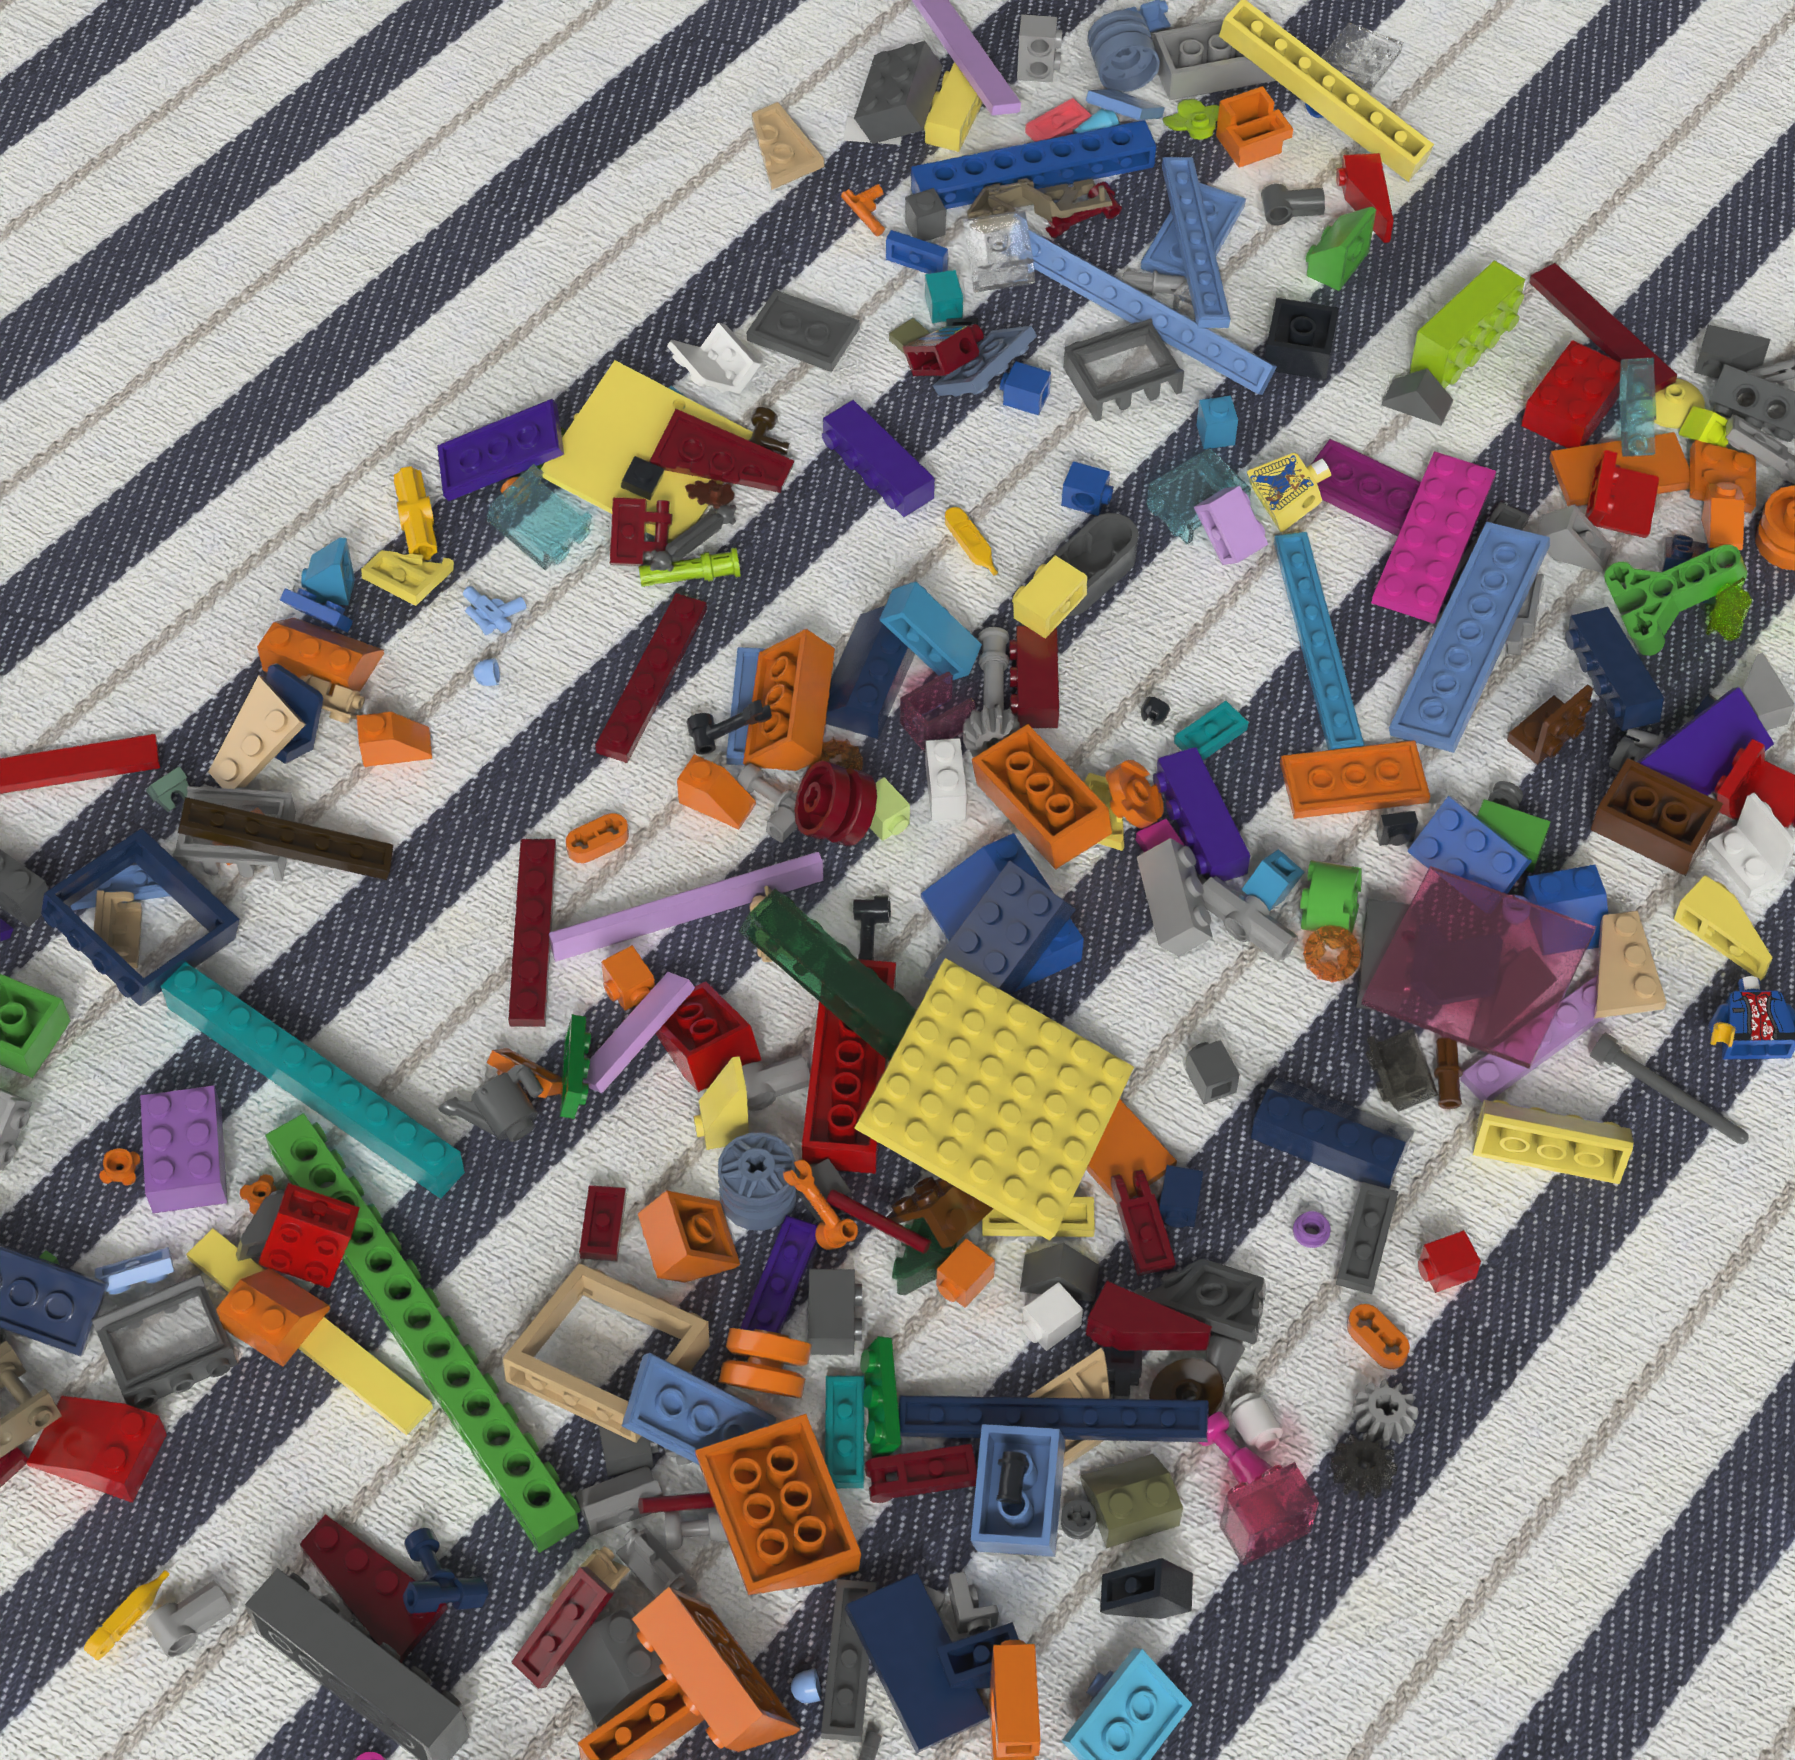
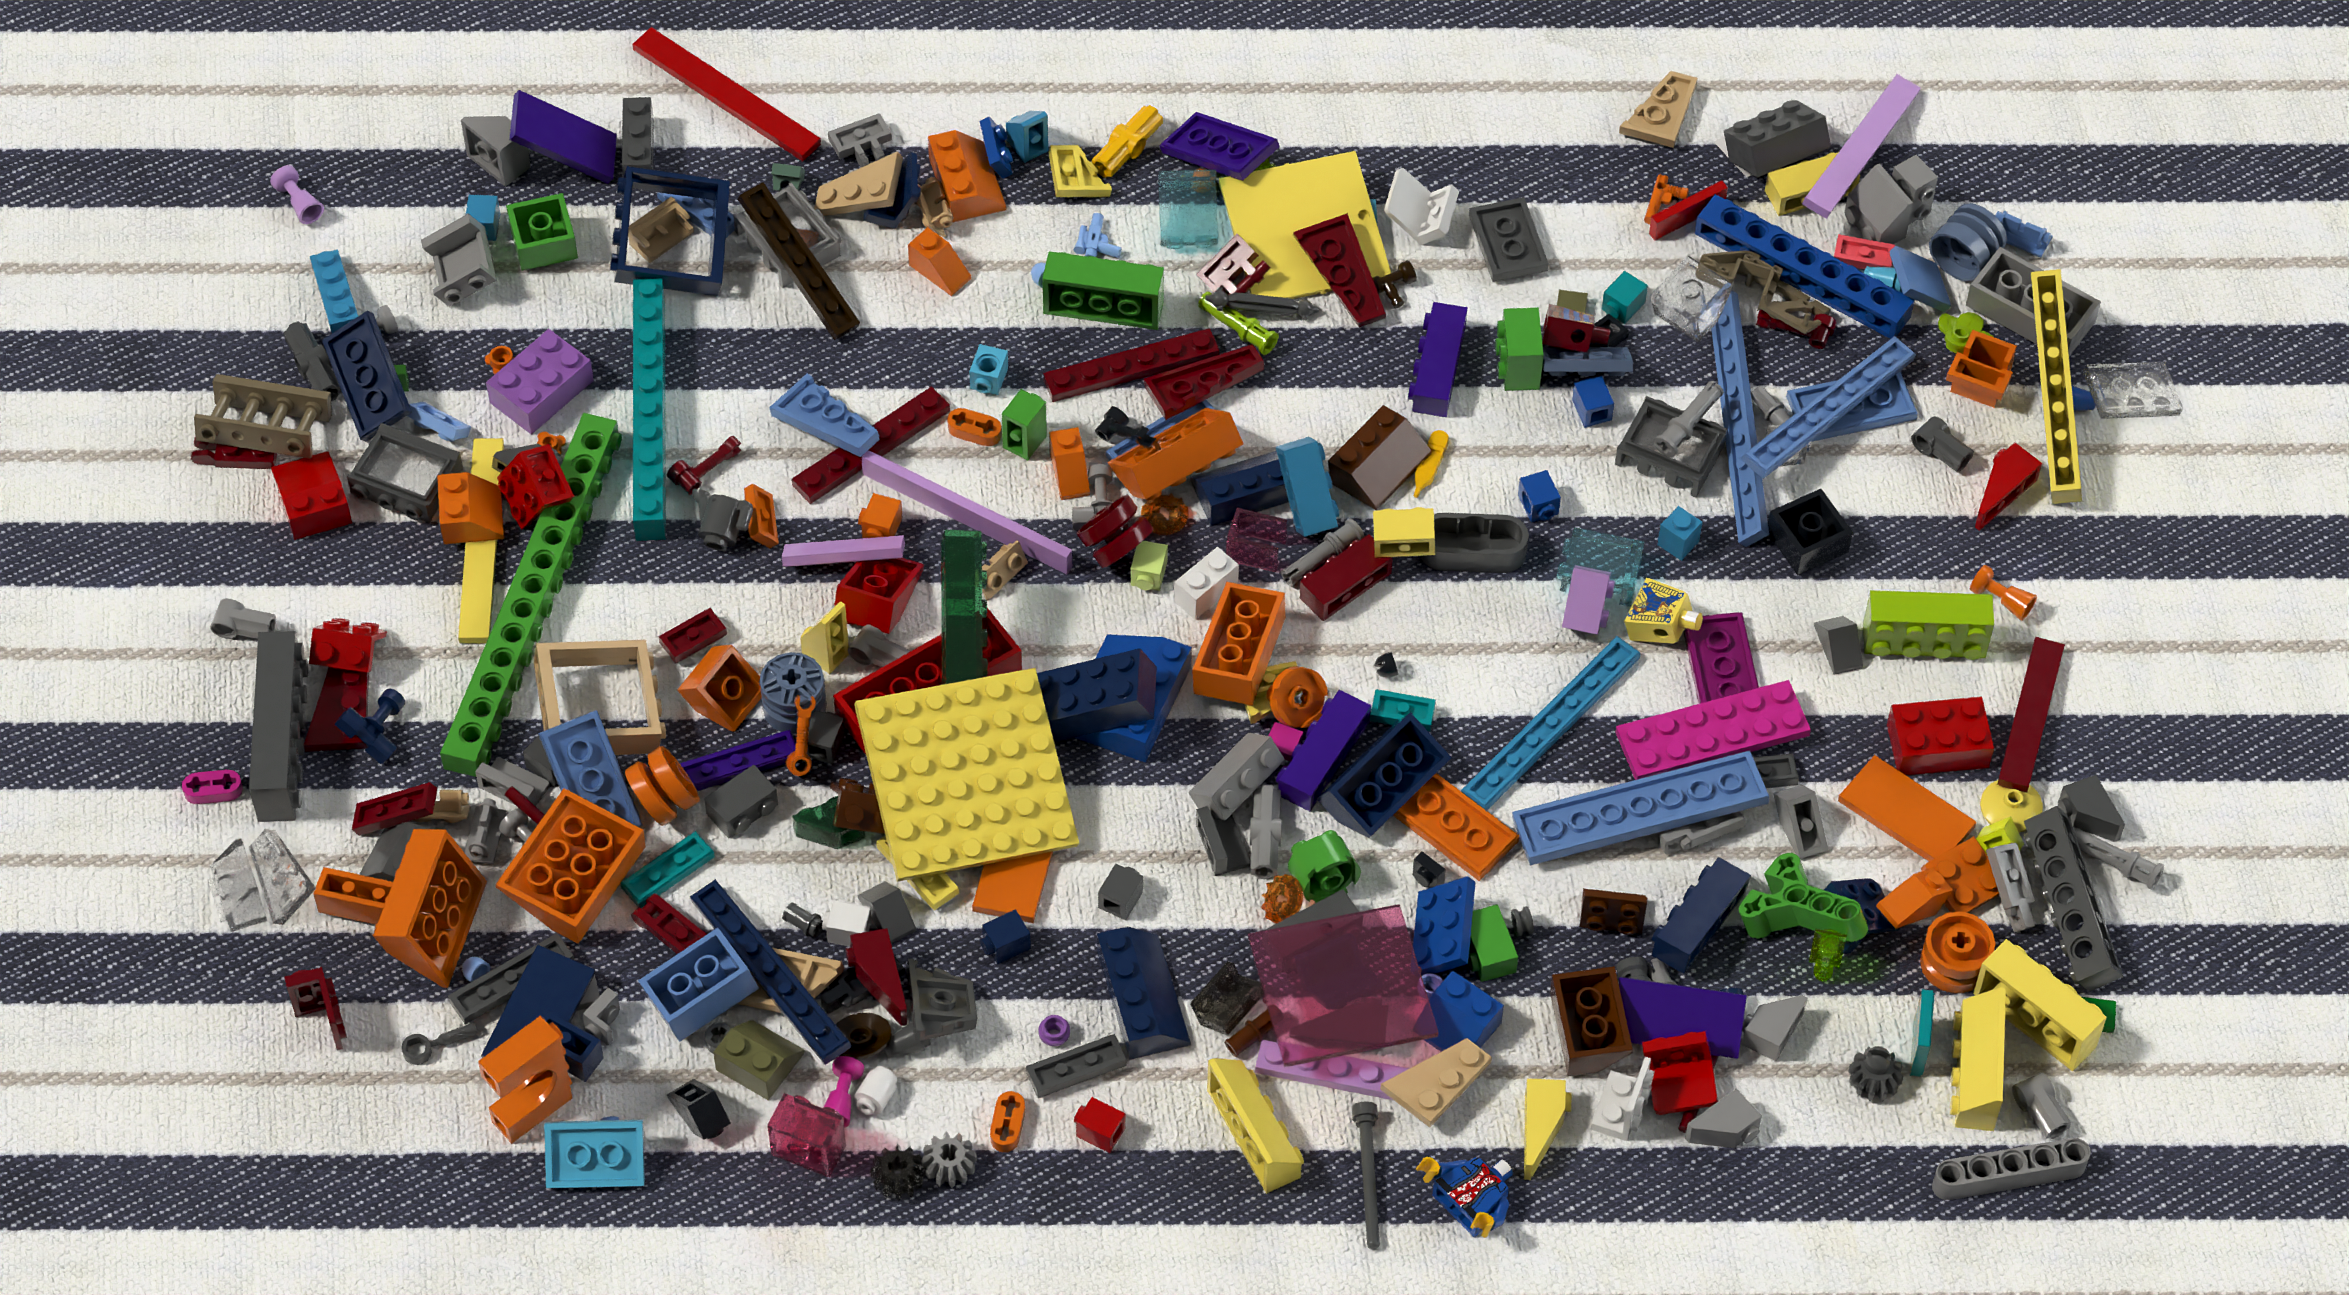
camera: 50 degrees right, 0 degrees up
(123, 1618) = (215, 590): yellow piece -> none
(188, 703) = (861, 136): none -> light grey hinge
(320, 1536) = (344, 645): none -> red bracket
(419, 1102) = (688, 477): none -> dark red brick
(459, 947) = (819, 414): none -> medium blue wing
(549, 771) = (988, 369): none -> medium azure brick
(563, 636) = (1103, 290): none -> bright green brick
(575, 1067) = (783, 535): green plate -> none
(642, 478) = (1278, 239): black plate -> none
(646, 793) = (1024, 424): none -> bright green brick
(710, 493) = (1309, 287): copper piece -> none
(726, 638) = (1193, 383): none -> dark red wing
(870, 913) = (1061, 615): black brick -> none
(878, 1221) = (820, 776): dark red bar -> none
(881, 1397) = (703, 868): green plate -> none
(901, 190) = (1684, 211): none -> red tile
(916, 253) = (1644, 249): blue plate -> none
(925, 215) = (1685, 234): dark grey brick -> none
(933, 393) = (1520, 349): none -> bright green brick
(941, 562) = (1378, 458): none -> reddish brown slope
(965, 1273) = (832, 853): orange brick -> none
(988, 728) = (1267, 574): light grey gear -> none
(1011, 1477) = (691, 966): black pin -> none
(1013, 1350) = (809, 923): none -> dark grey pin
(1035, 75) = (1879, 207): none -> light grey slope
(1124, 343) = (1682, 427): none -> light grey pin
(1143, 1225) = (962, 929): dark red hinge -> none
(1224, 962) = (1221, 842): none -> dark grey panel
(1273, 790) = (1384, 777): none -> dark blue slope
(1273, 879) = (1304, 822): dark azure brick -> none
(1341, 248) = (1925, 503): bright green slope -> none
(1449, 268) = (2014, 599): none -> orange piece
(1621, 497) = (1868, 822): red bracket -> none
(1637, 406) = (1956, 770): clear light blue panel -> none

